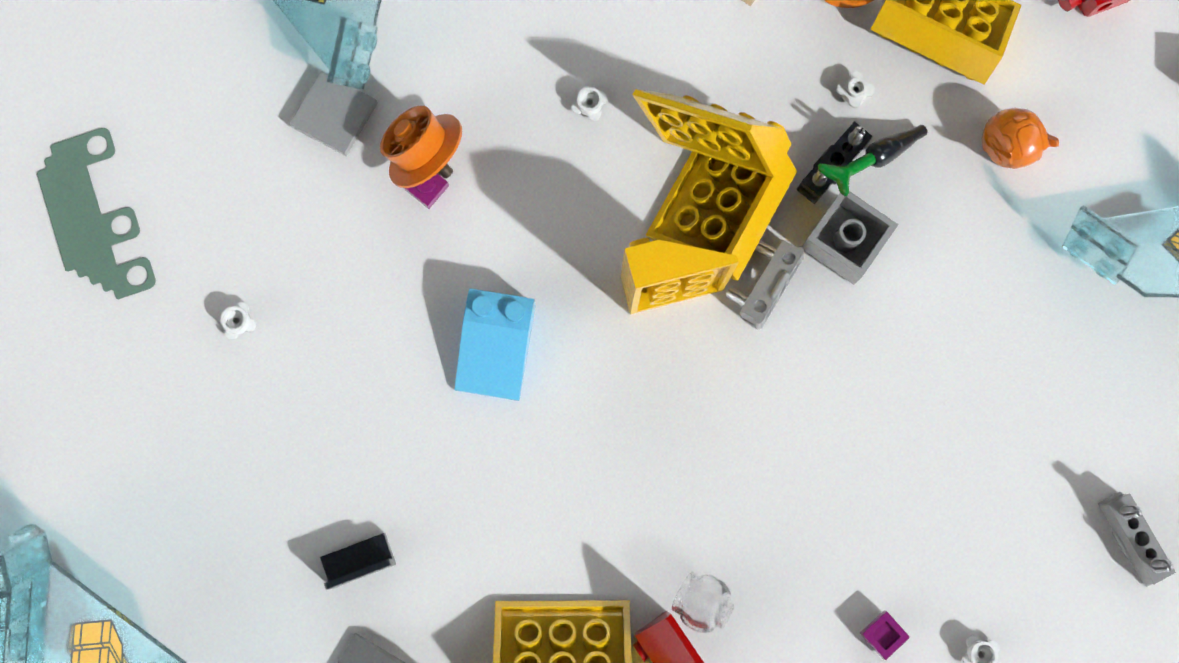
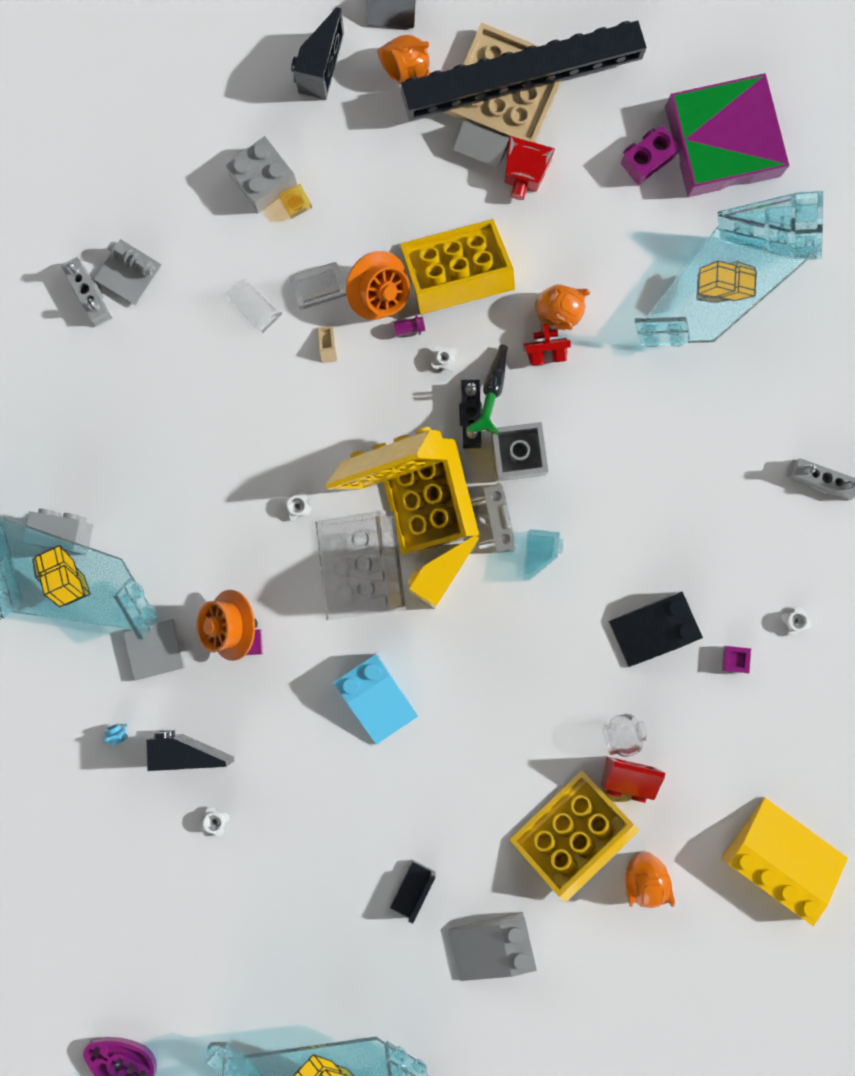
camera: 45 degrees left, 5 degrees up
(77, 222) = (66, 852): sand green piece -> none
(225, 156) = (115, 734): none -> medium azure plate
(259, 214) = (179, 752): none -> black slope
(598, 207) = (360, 565): none -> clear slope
(783, 351) = (541, 550): none -> clear light blue slope
(830, 529) = (655, 629): none -> black slope
(849, 32) = (409, 326): none -> magenta pin
(977, 174) = (557, 346): none -> red hips

